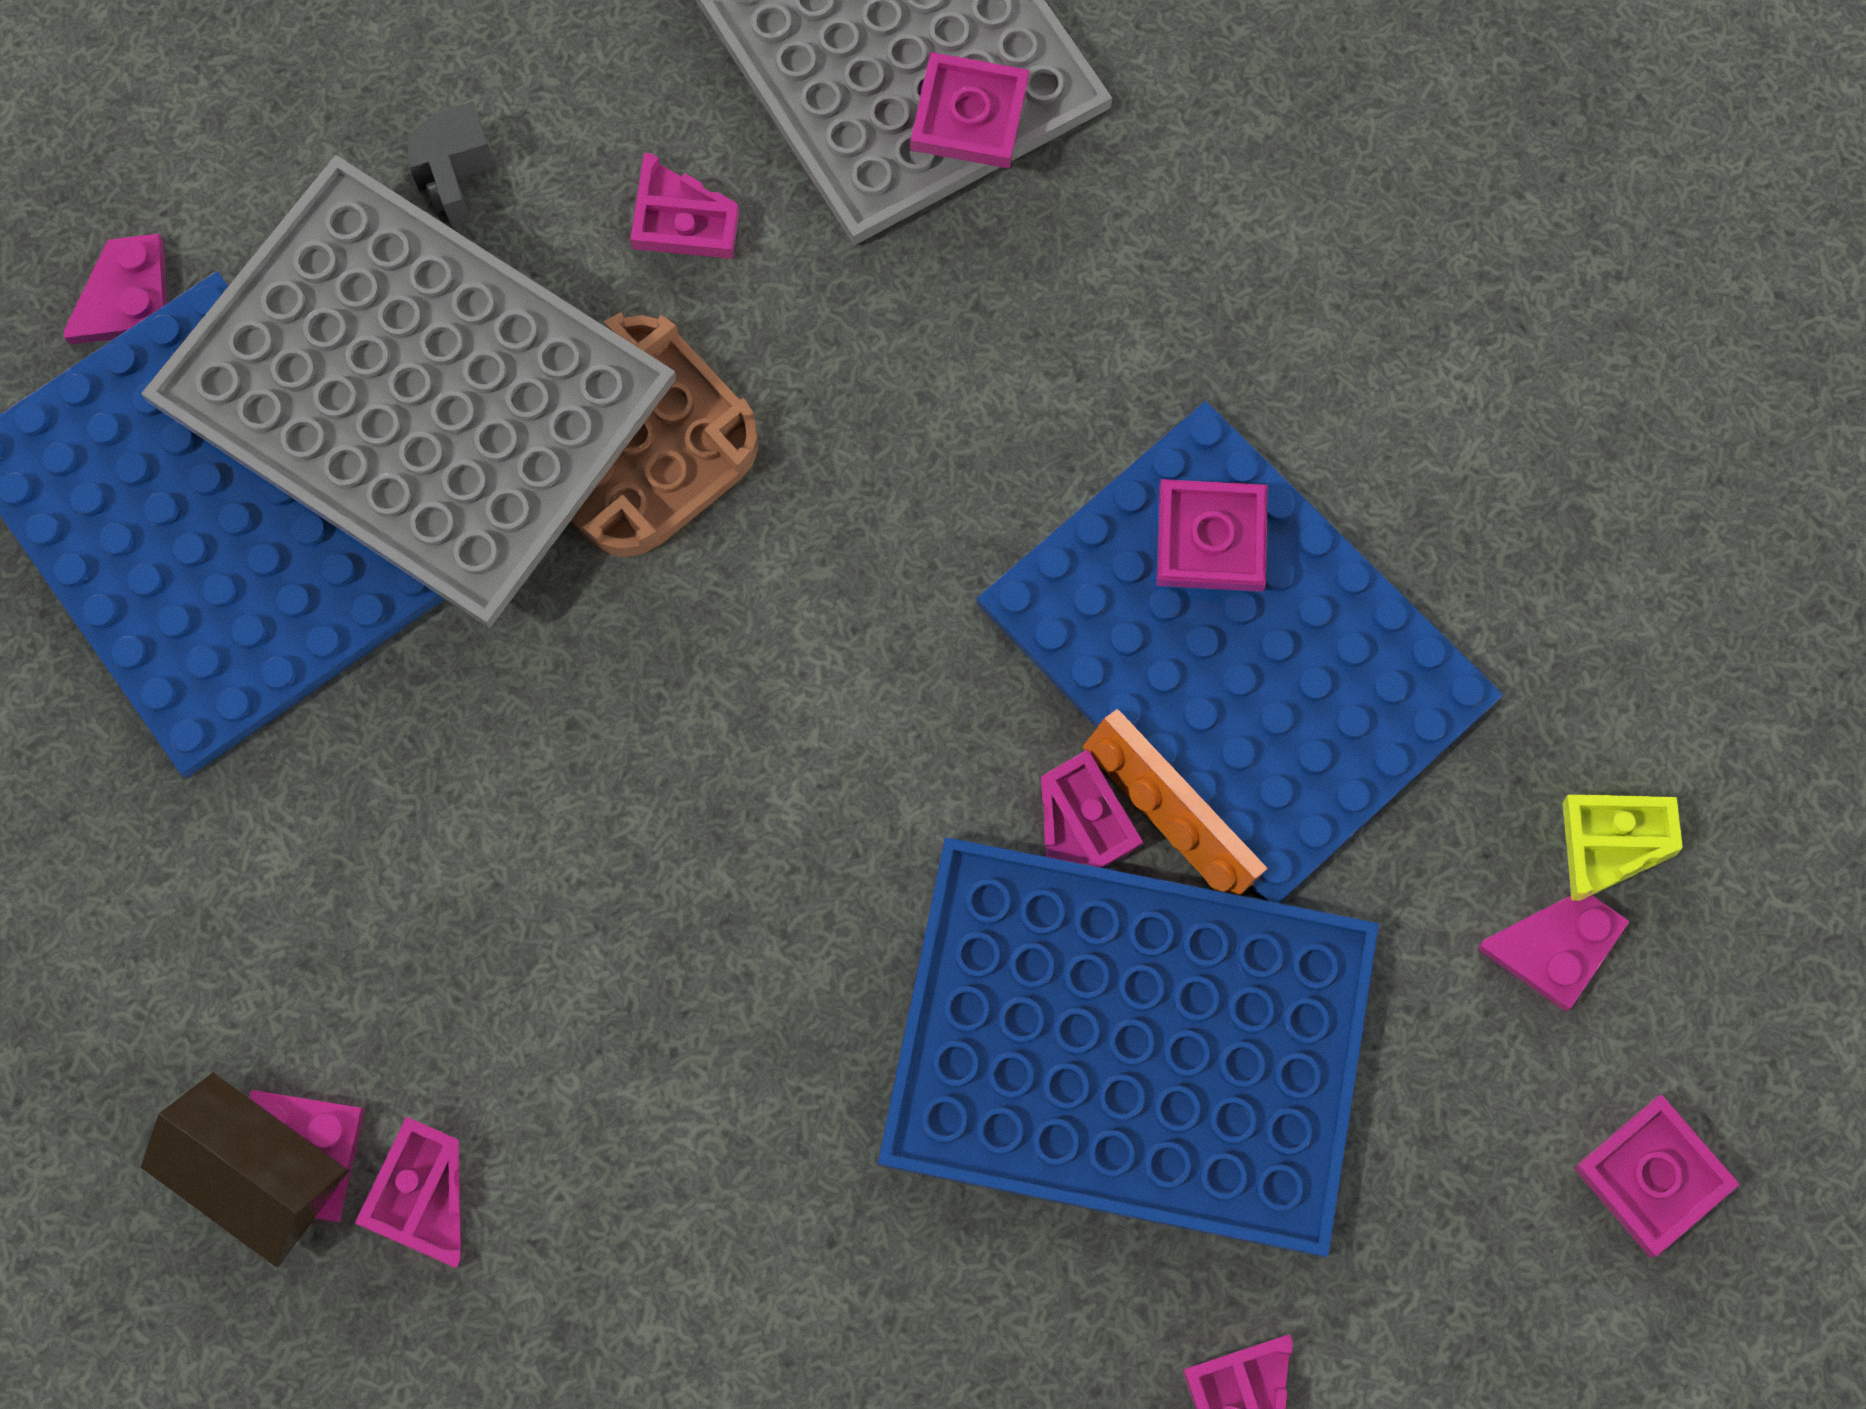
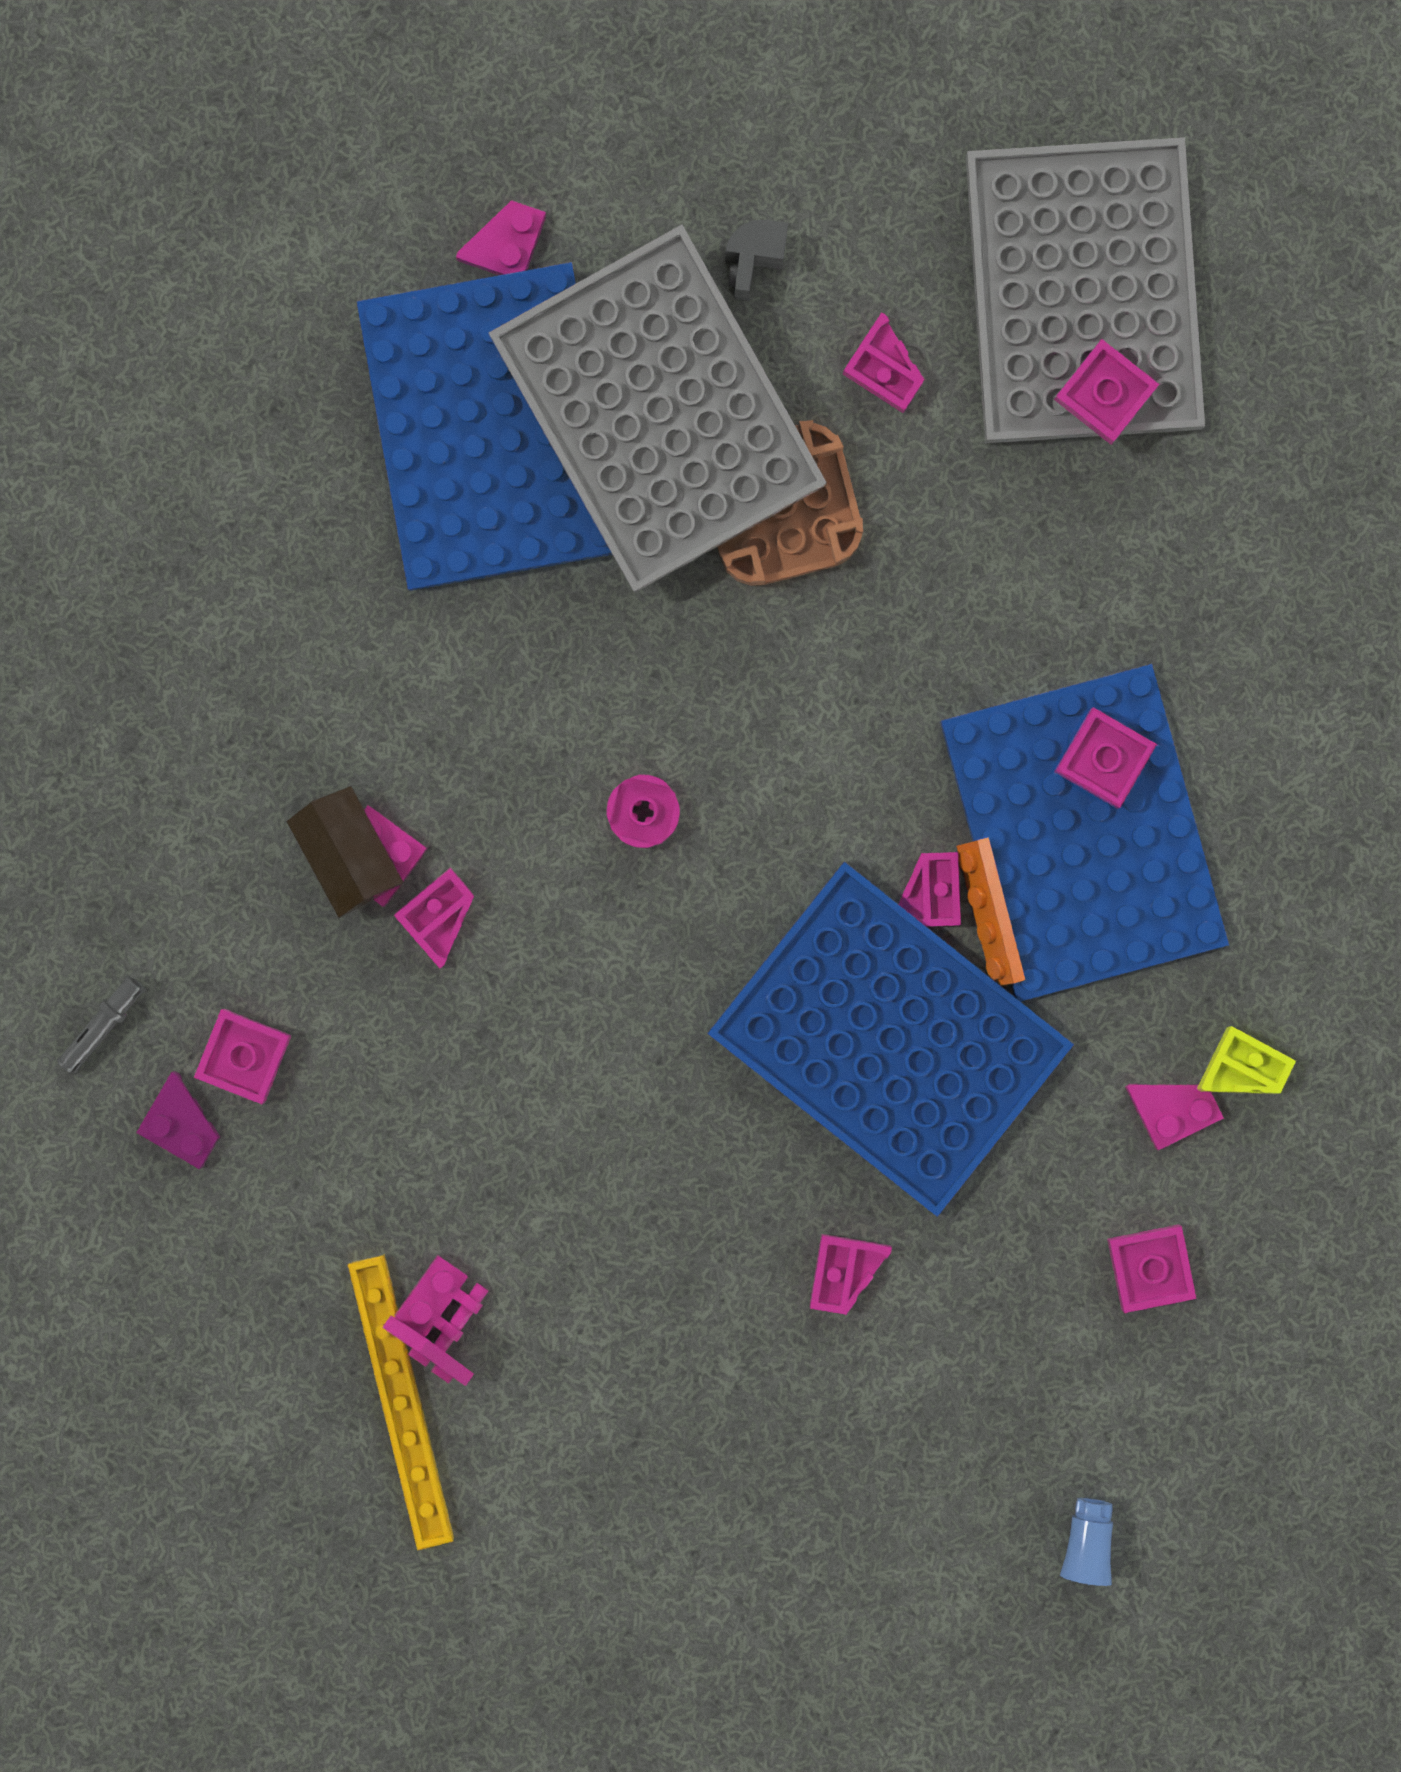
camera: 25 degrees right, 15 degrees up
(614, 891) = (661, 801): none -> dark pink plate

